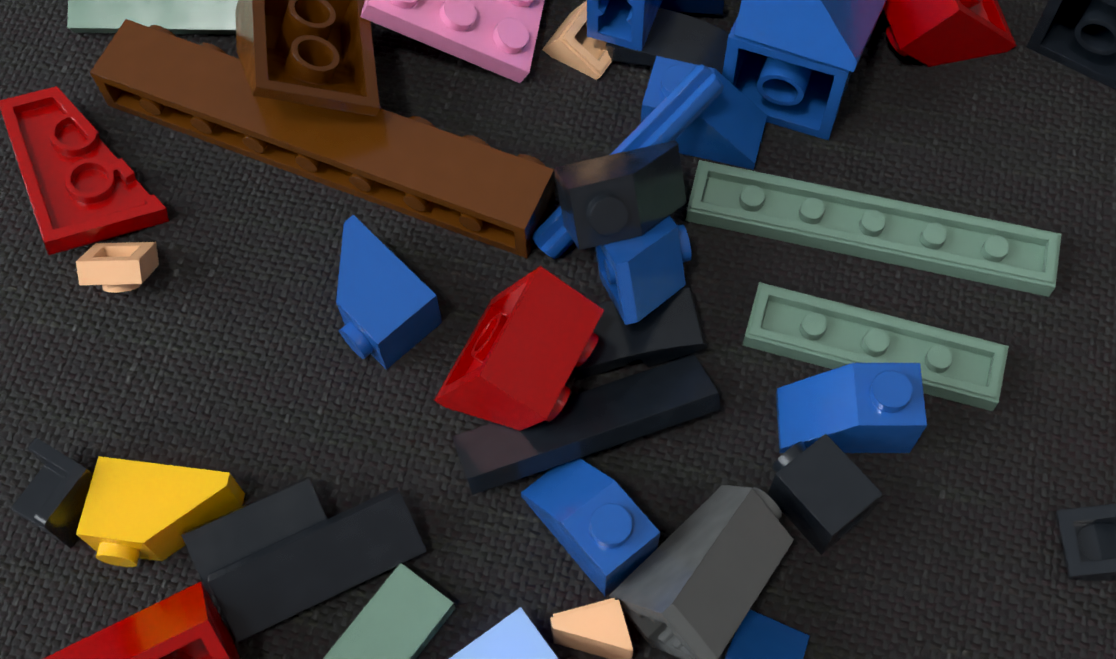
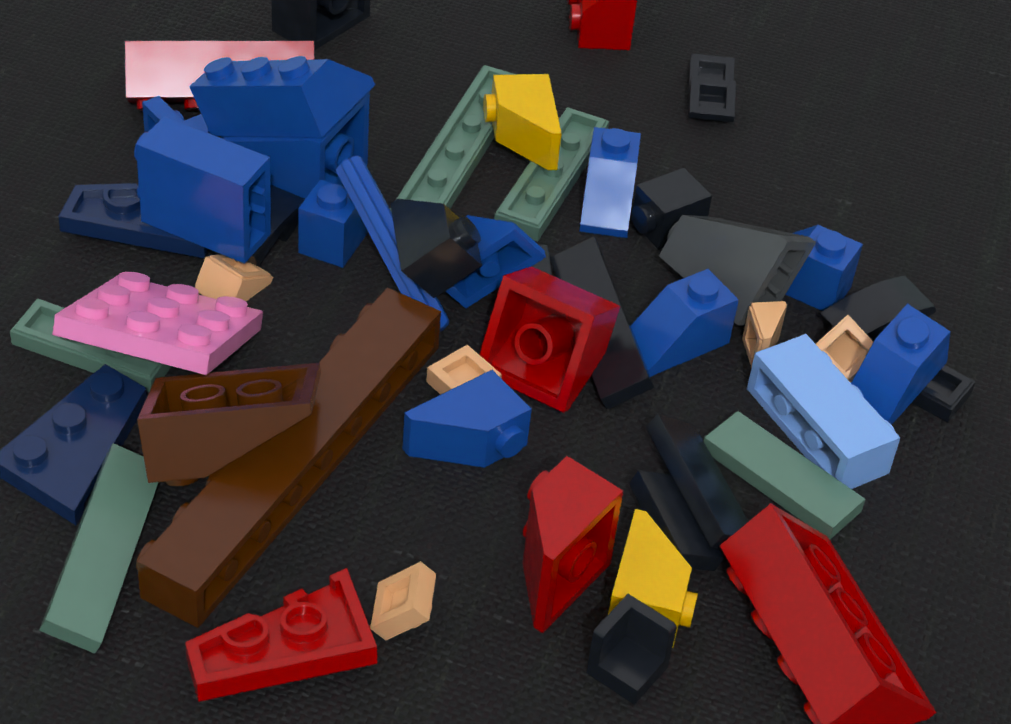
camera: 90 degrees left, 20 degrees down
(175, 393) = (567, 537): none -> red slope
(460, 280) = (457, 369): none -> light nougat plate
(936, 284) = (525, 117): none -> yellow slope

